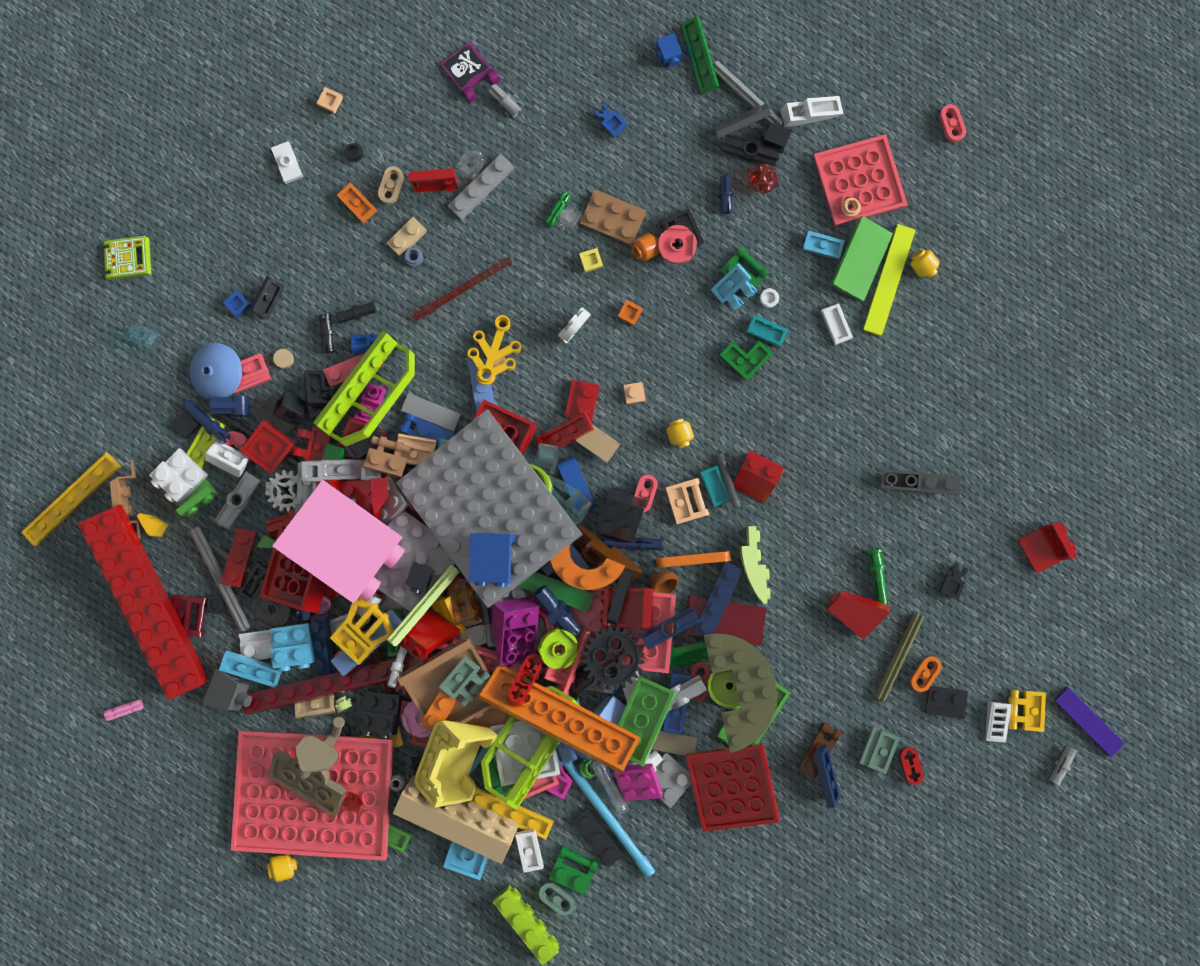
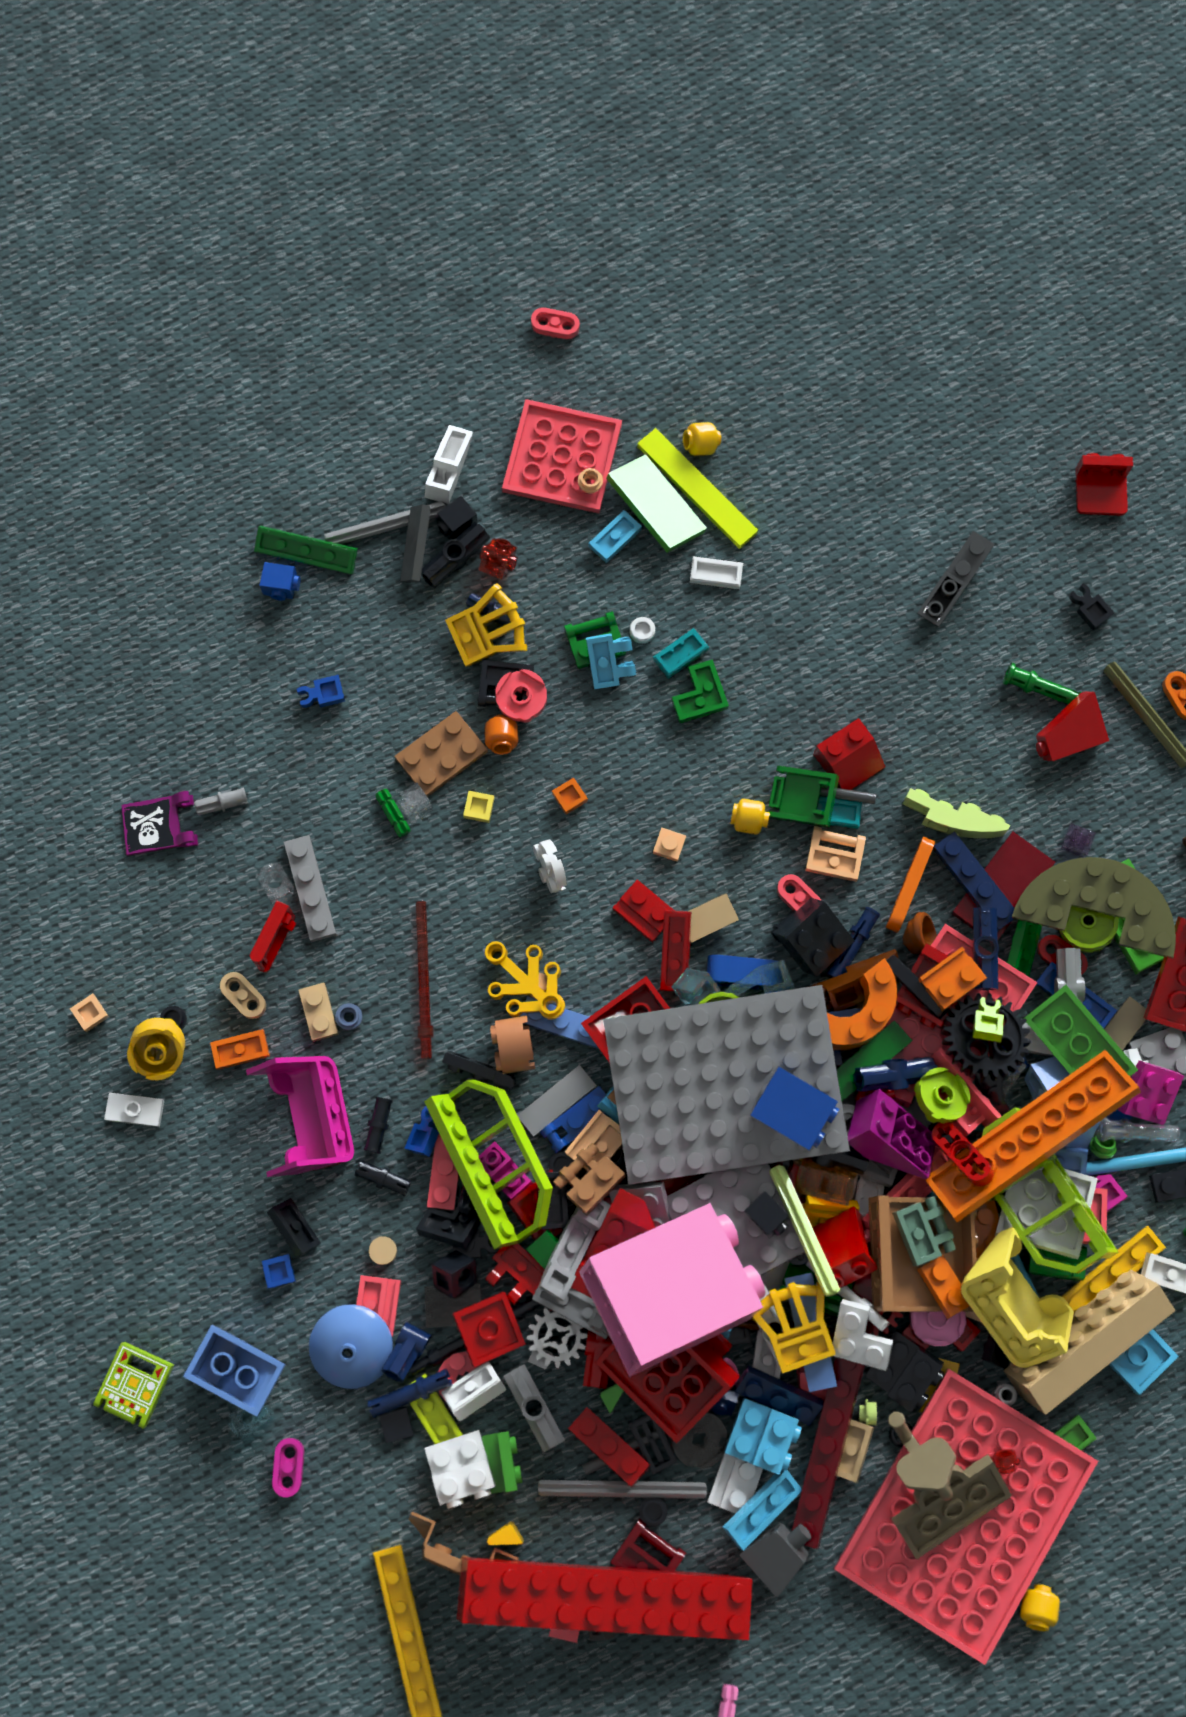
camera: 60 degrees left, 10 degrees down
(128, 374) = (288, 1467): none -> dark pink plate
(162, 309) = (234, 1370): none -> medium blue slope
(326, 151) = (143, 1053): none -> yellow brick
(344, 271) = (315, 1109): none -> dark pink windscreen
(373, 671) = (853, 1343): none -> white plate
(423, 354) = (480, 1070): none -> black hinge
(447, 365) = (513, 1045): none -> nougat brick
(619, 653) = (987, 1022): none -> plate
(635, 616) = (952, 978): none -> orange plate
(701, 192) = (472, 635): none -> yellow plate
(711, 458) = (799, 796): none -> green container
(785, 653) = (1078, 840): none -> clear purple tile

